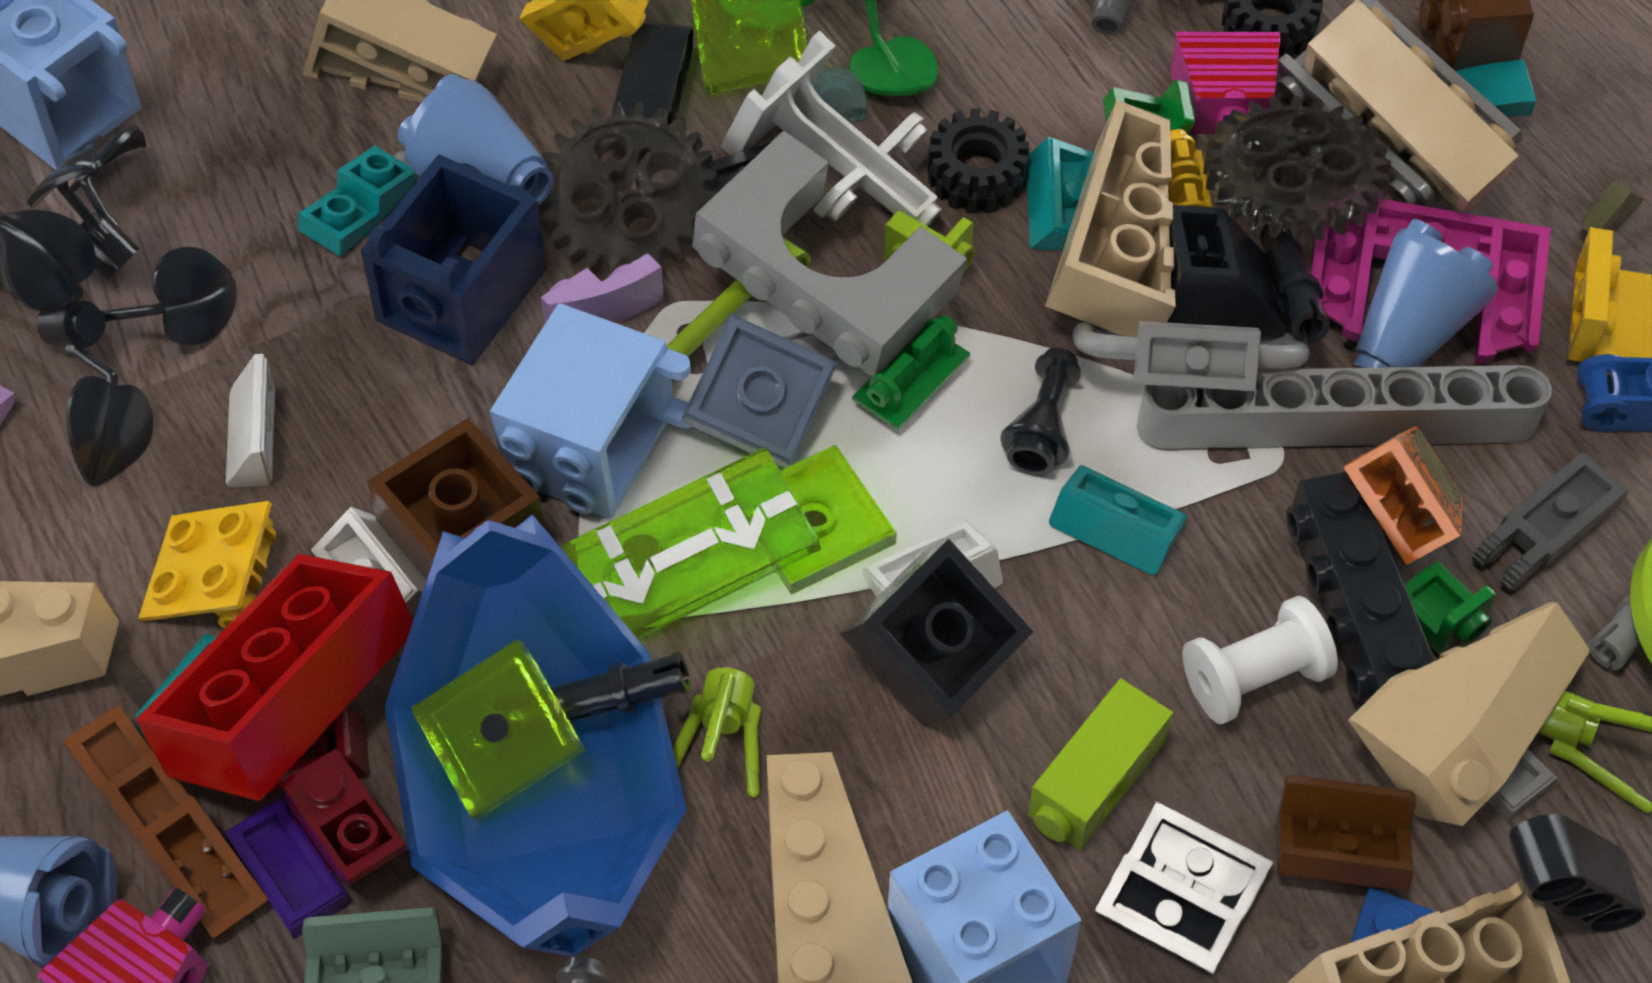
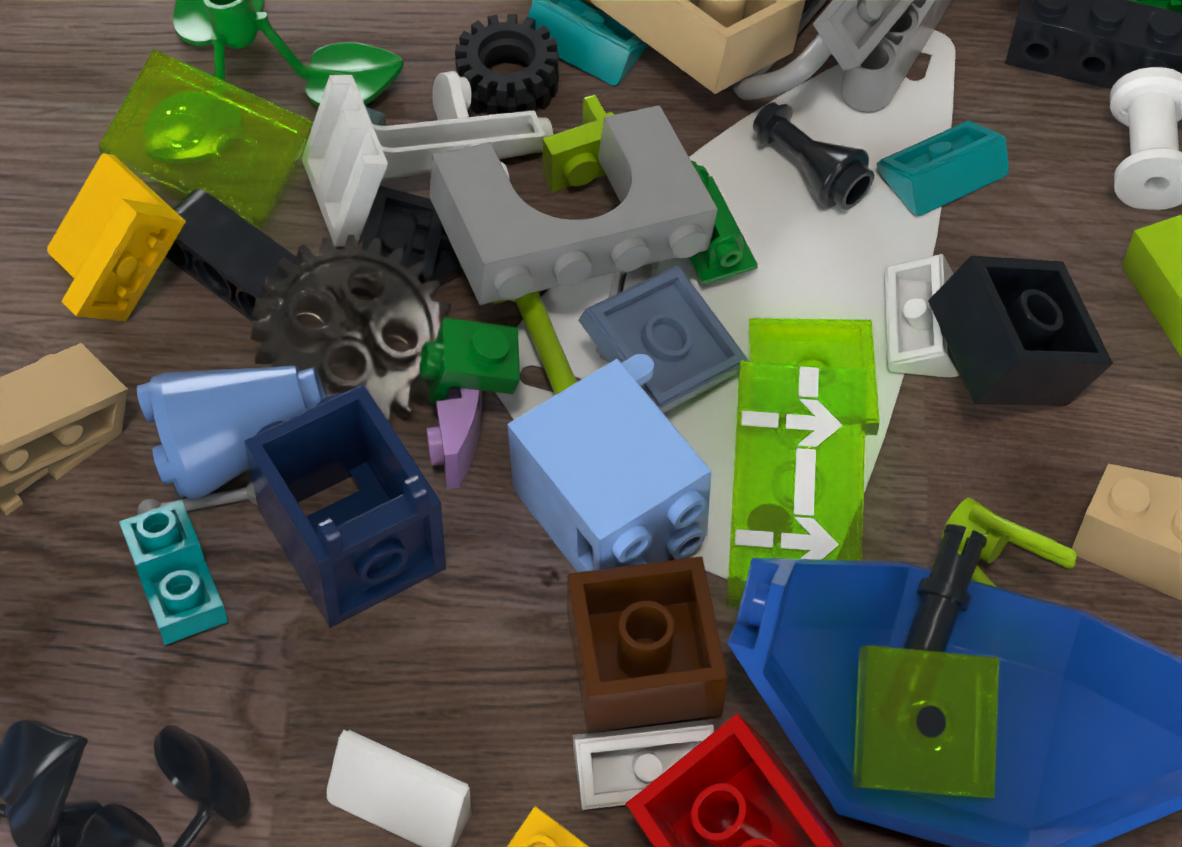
camera: 60 degrees left, 0 degrees up
(638, 267) = (471, 358): none -> green bracket

